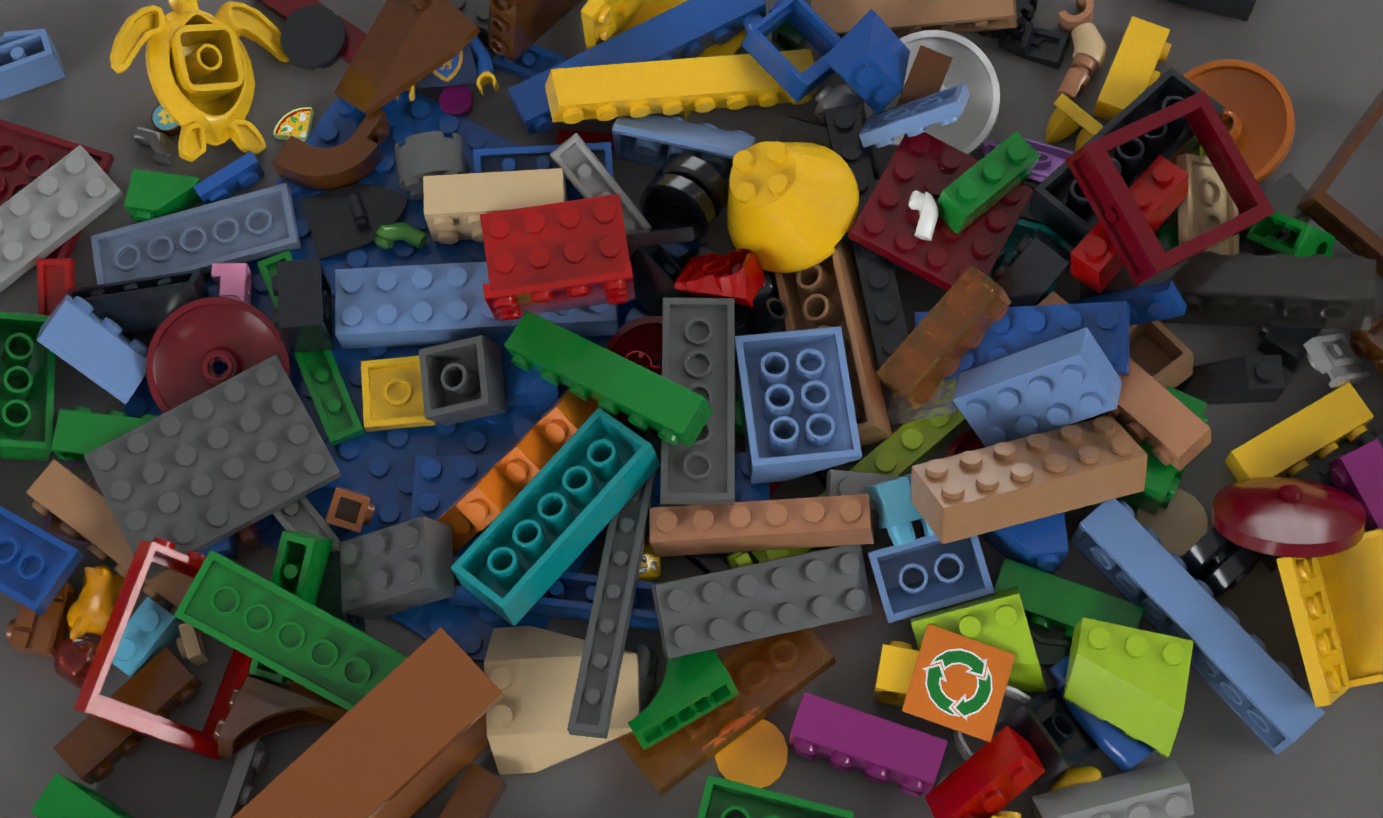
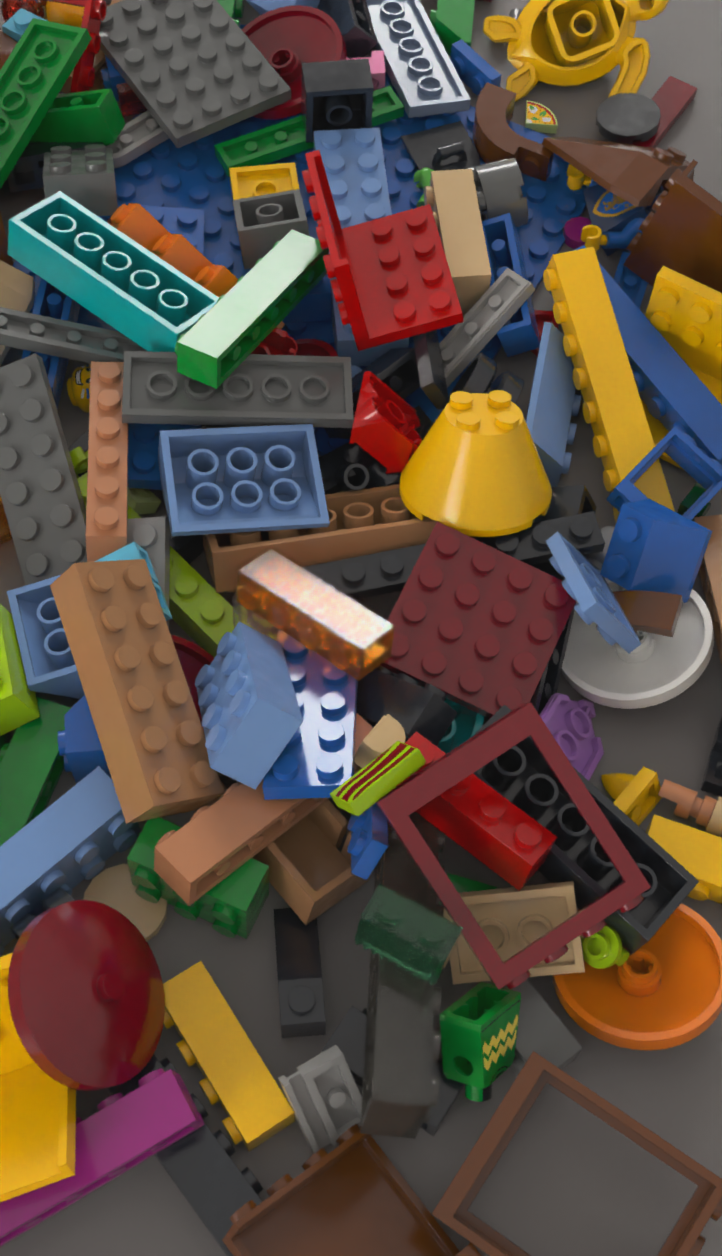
camera: 80 degrees right, 10 degrees down
(349, 509) = (147, 156): dark orange brick -> none
(928, 214) = (452, 590): white arm -> none
(987, 182) = (506, 652): green brick -> none
(1072, 284) = (379, 739): none -> tan brick
(1128, 276) = (378, 778): none -> lime tile
(1247, 267) = (407, 934): none -> clear green brick

